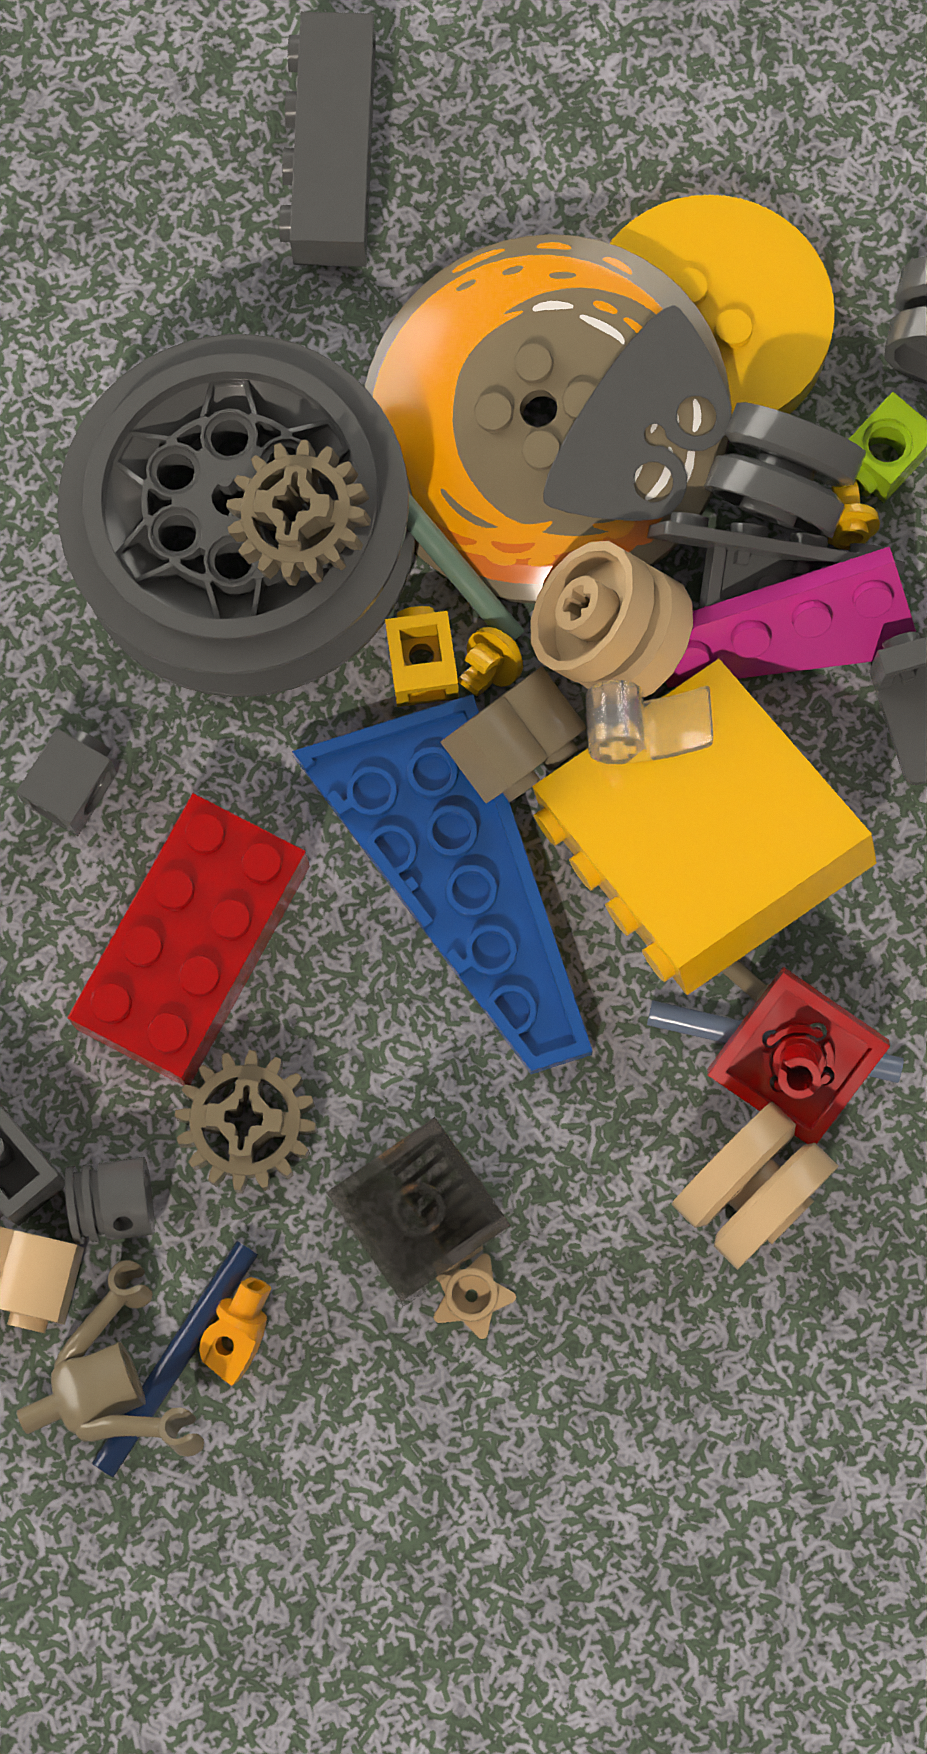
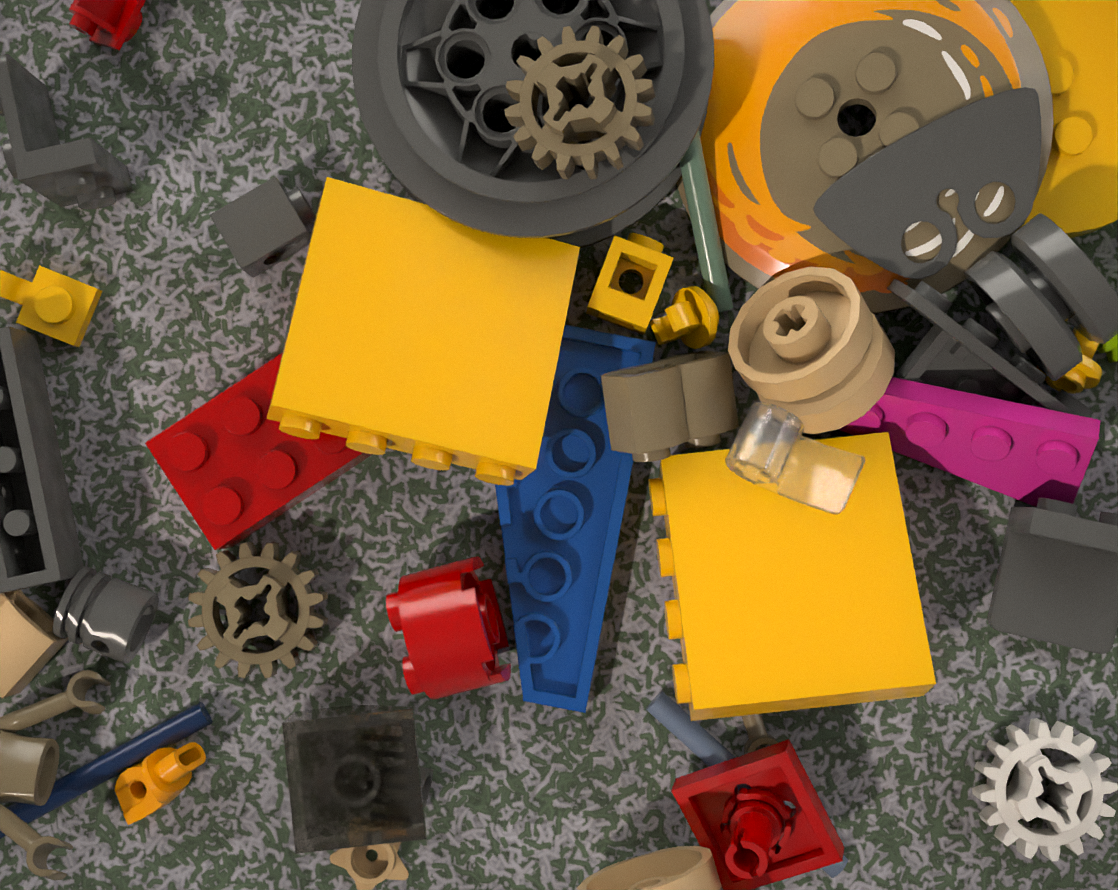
camera: 30 degrees right, 10 degrees up
(267, 785) = (423, 336): none -> yellow brick
(431, 1036) = (449, 629): none -> red brick

